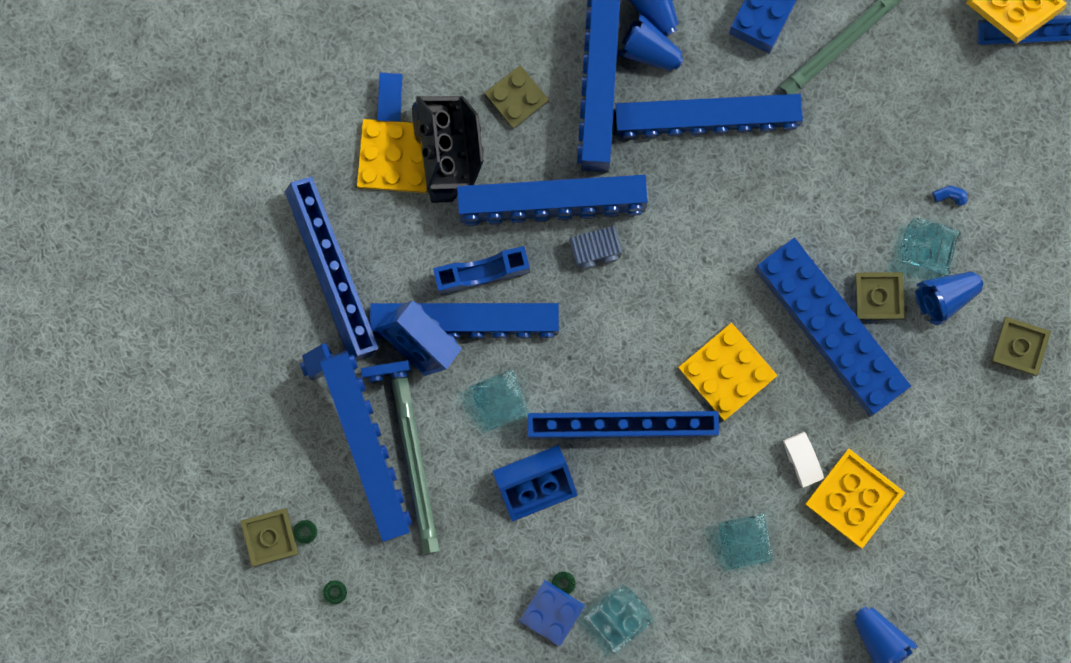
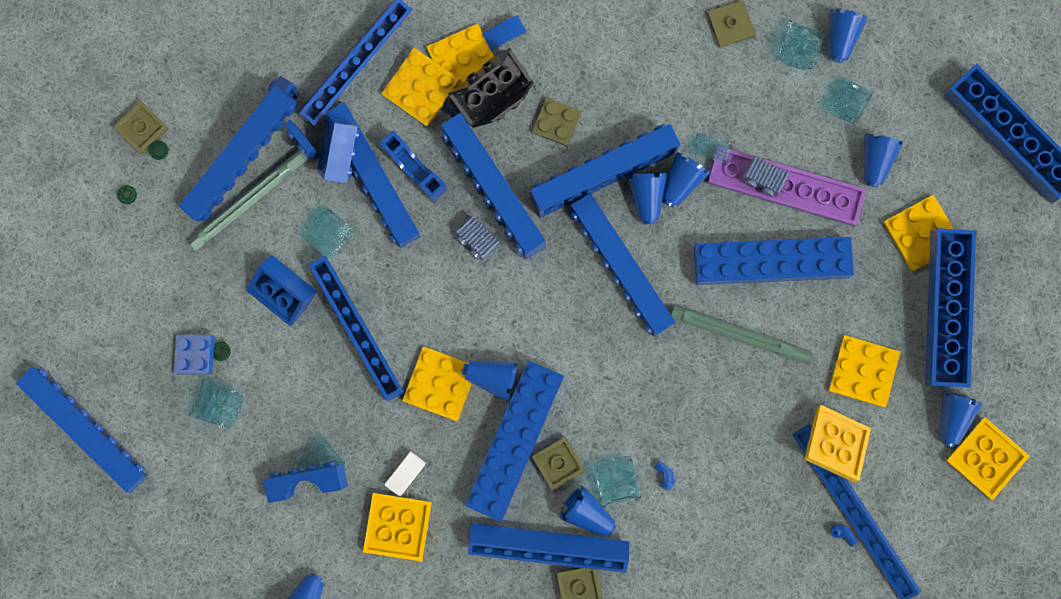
camera: 55 degrees right, 0 degrees up
(398, 215) = (420, 87): none -> yellow plate
(754, 311) = (491, 376): none -> blue cone
(767, 539) = (328, 478): none -> blue arch
(962, 353) = (548, 548): none -> blue brick

